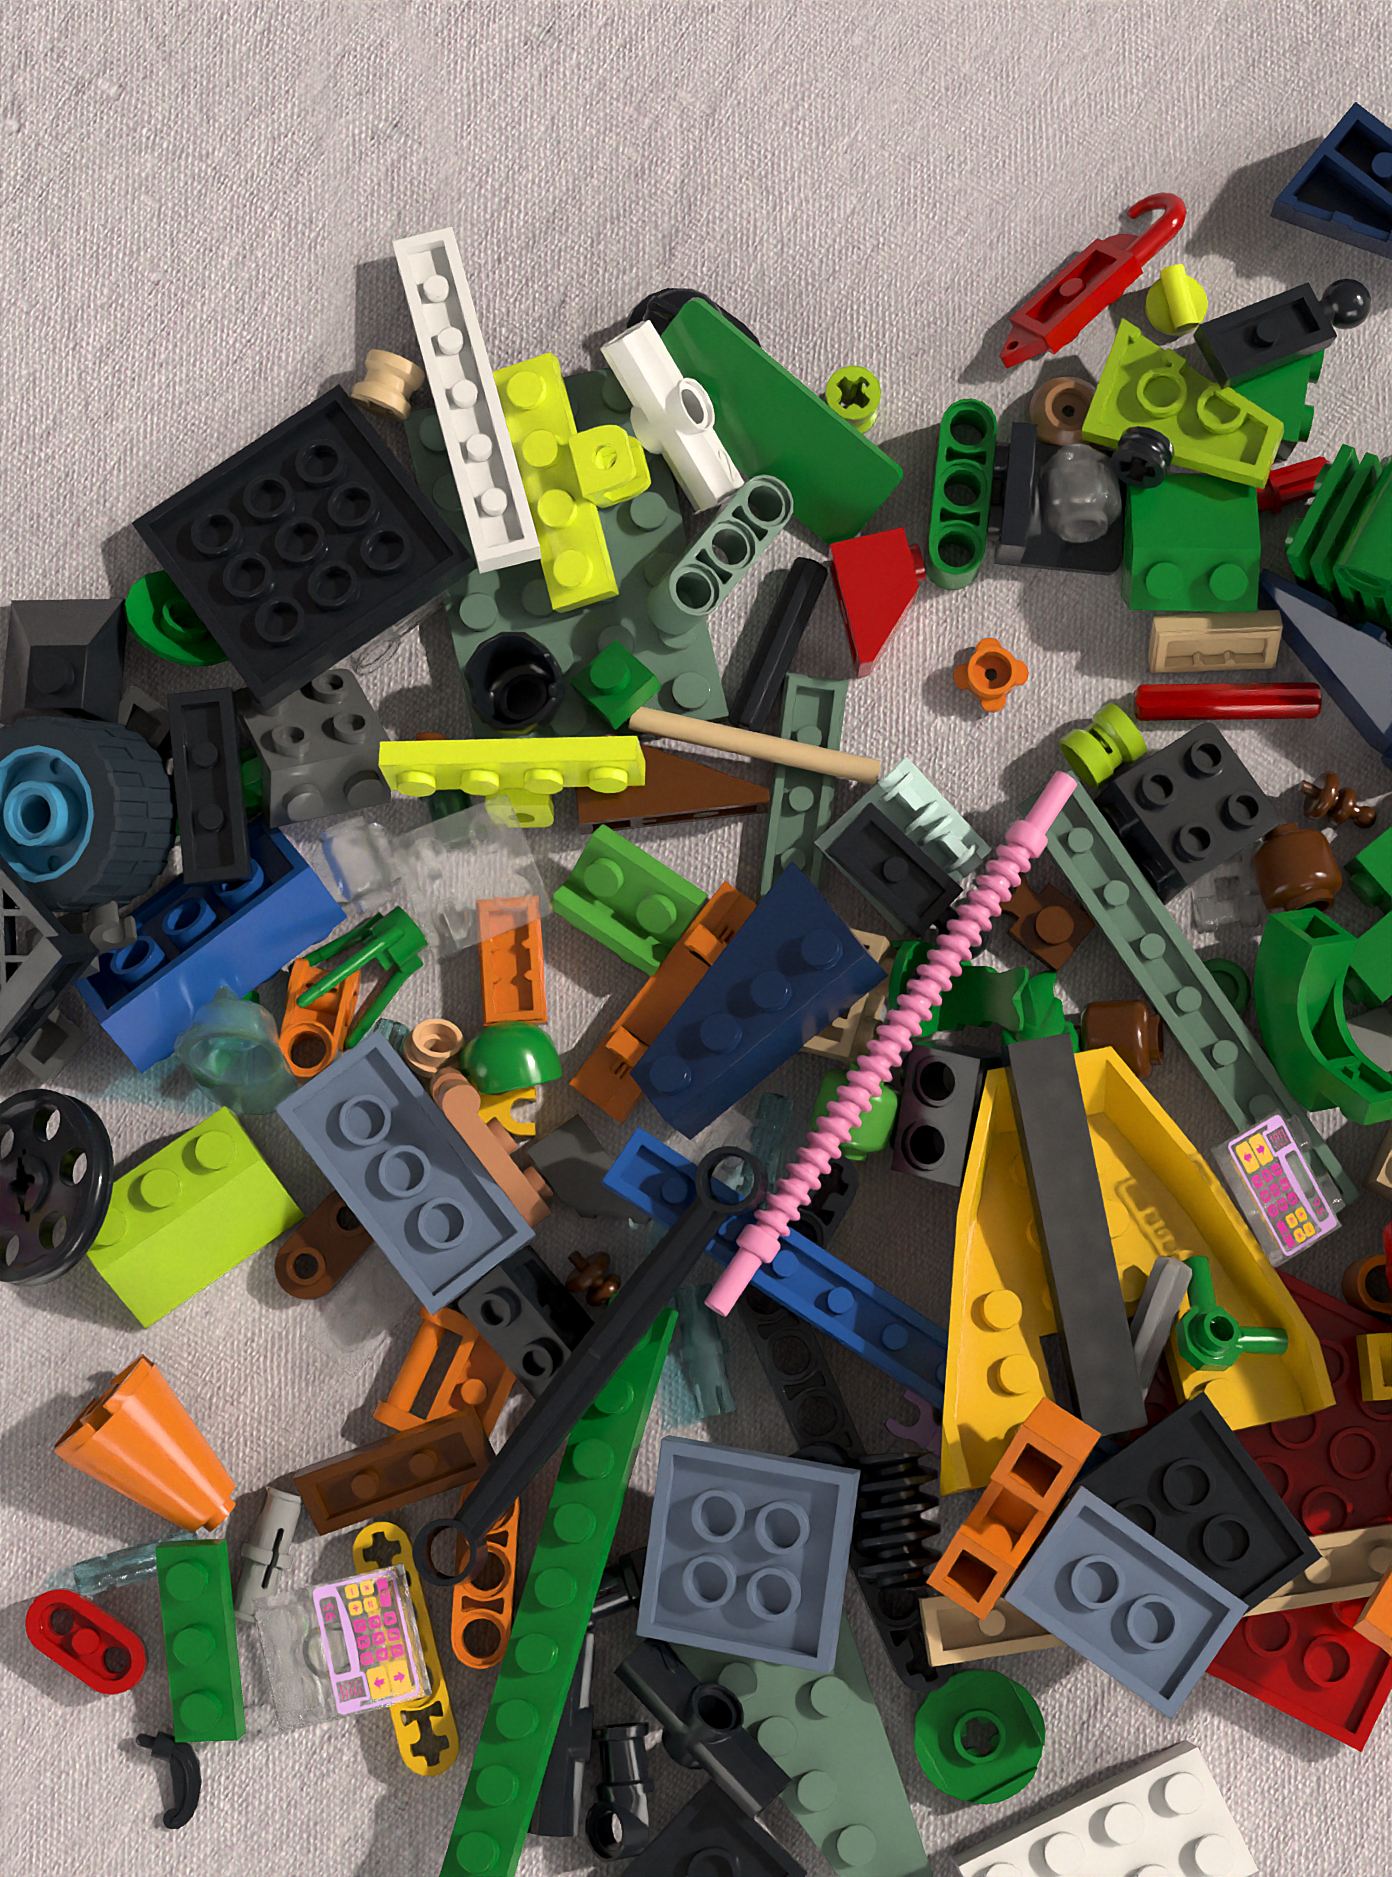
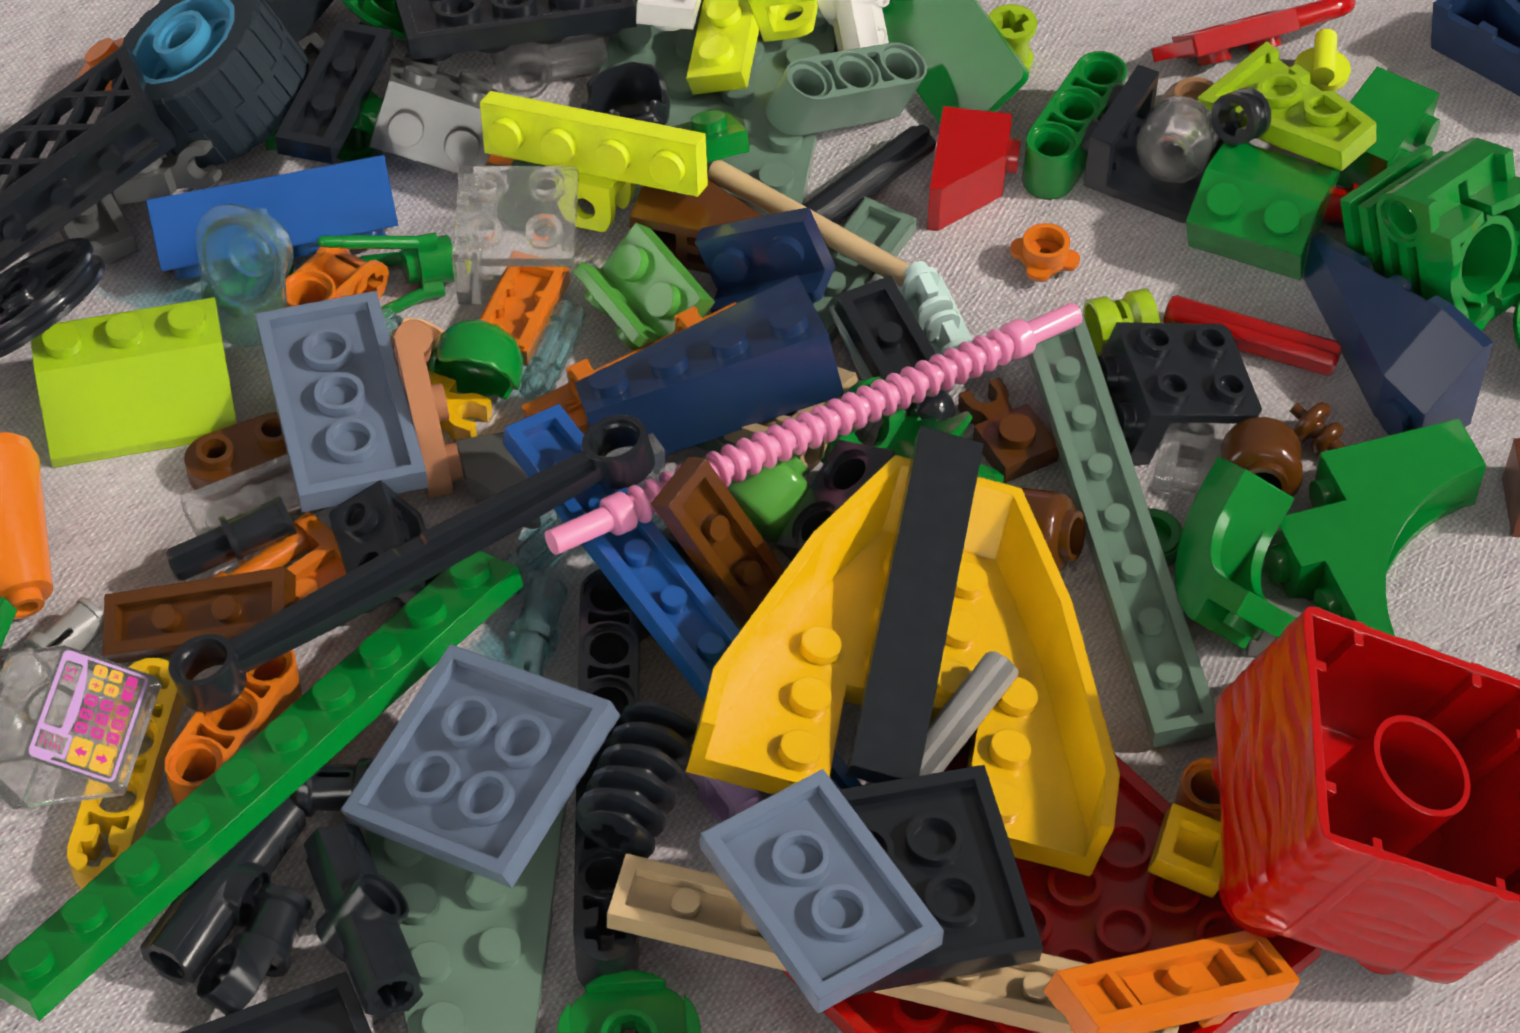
camera: 25 degrees right, 30 degrees down
(356, 864) = (425, 195): clear head -> none
(381, 1373) = (231, 540): none -> black axle
(566, 998) = (553, 350): none -> clear light blue axle
(741, 833) = (763, 252): none -> dark blue bracket
(860, 1219) = (718, 537): none -> reddish brown plate
(1013, 1508) = (788, 734): orange arch -> none
(1210, 1335) = (1013, 732): green piece -> none
(1214, 641) = (1256, 283): tan plate -> none
(1276, 1184) = (1134, 653): clear slope -> none
(1280, 329) = (1401, 71): black plate -> none

